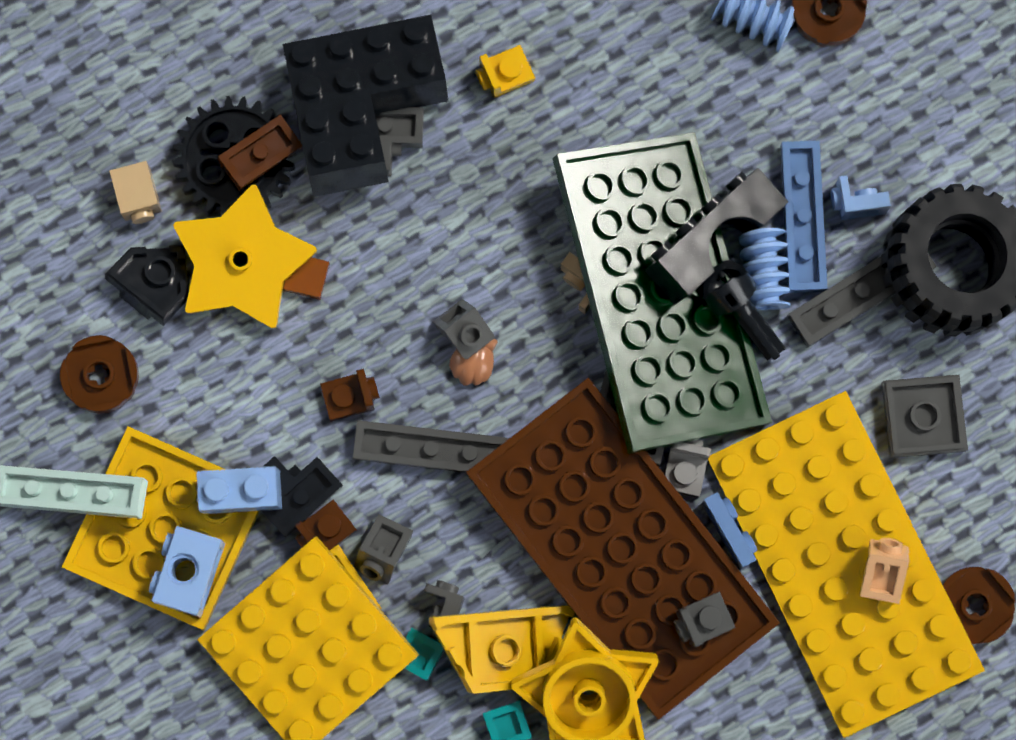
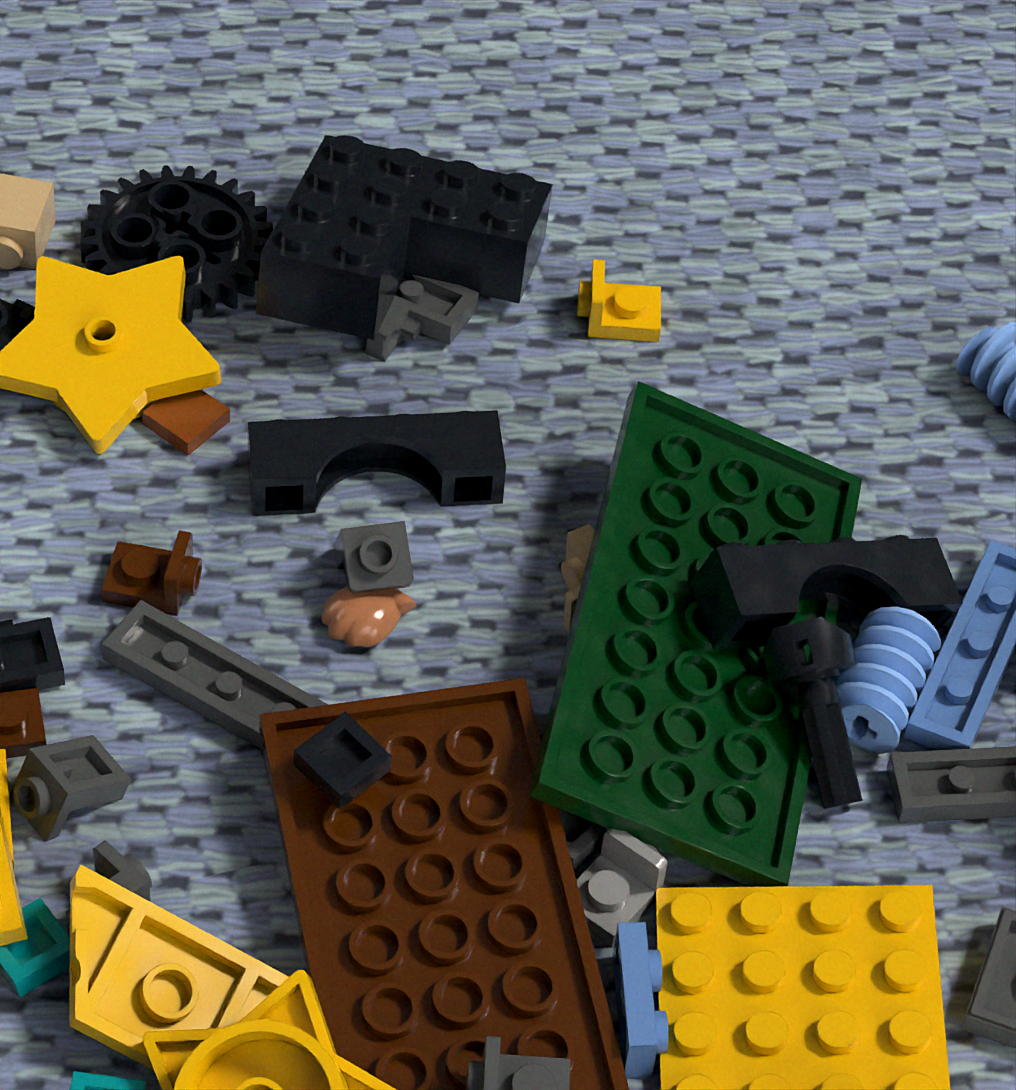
camera: 25 degrees right, 30 degrees down
(259, 152) = (211, 225): reddish brown plate -> none
(469, 233) = (447, 453): none -> black arch
(526, 484) = (342, 760): none -> black plate

